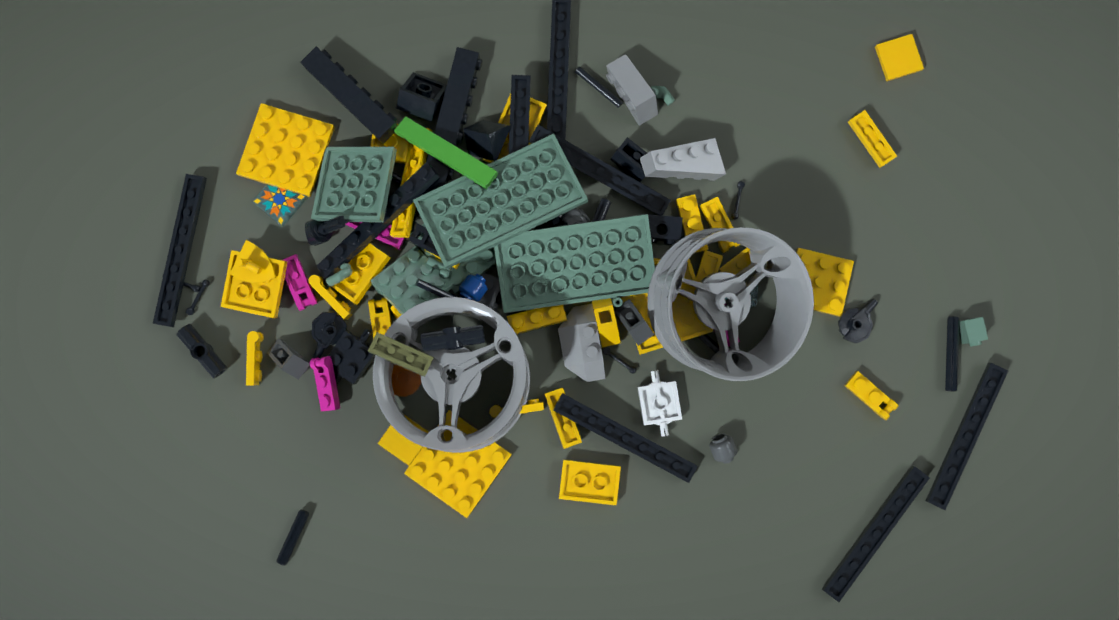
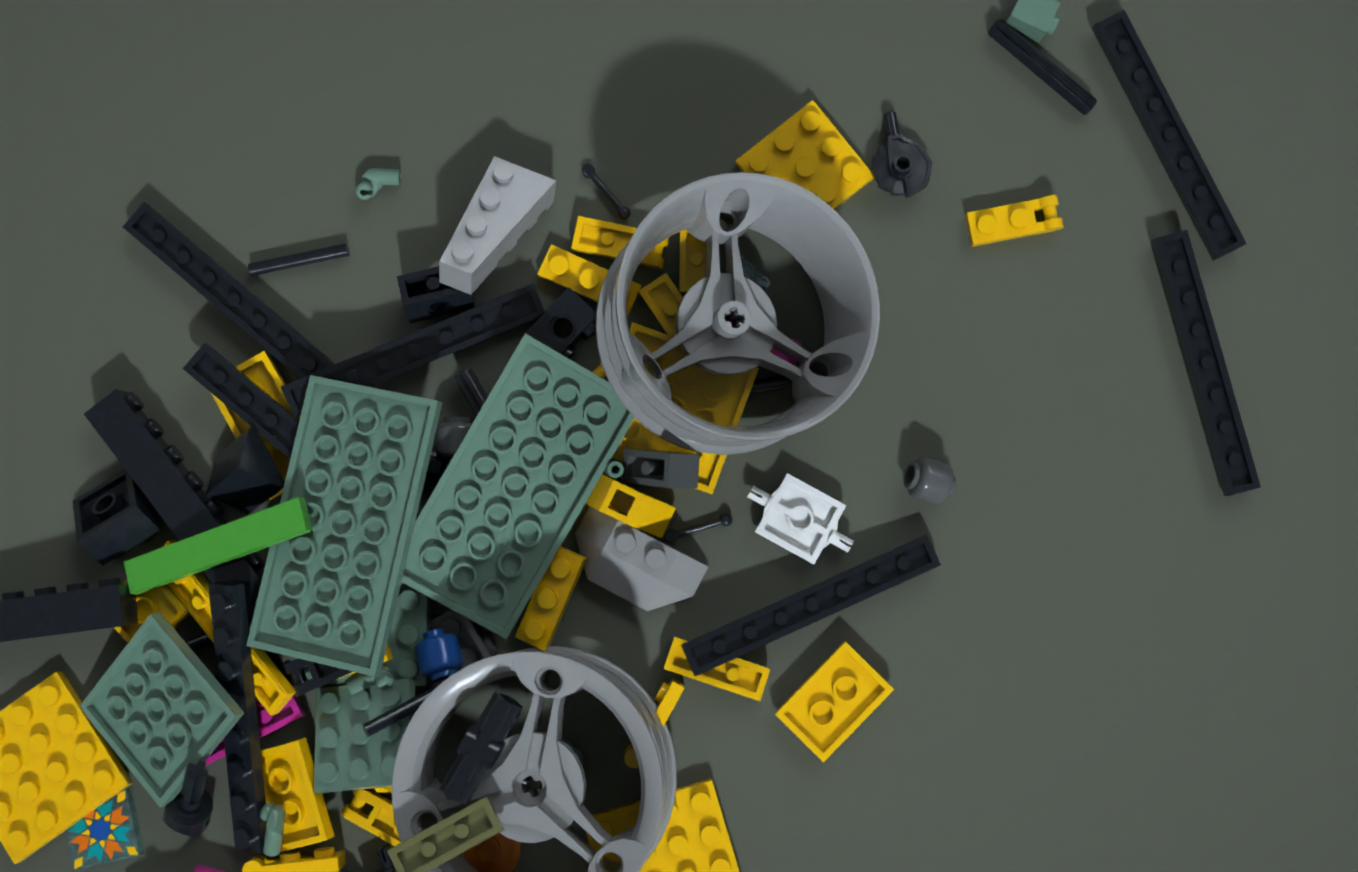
camera: 40 degrees left, 0 degrees up
(632, 89) = (338, 215): light grey wedge -> none

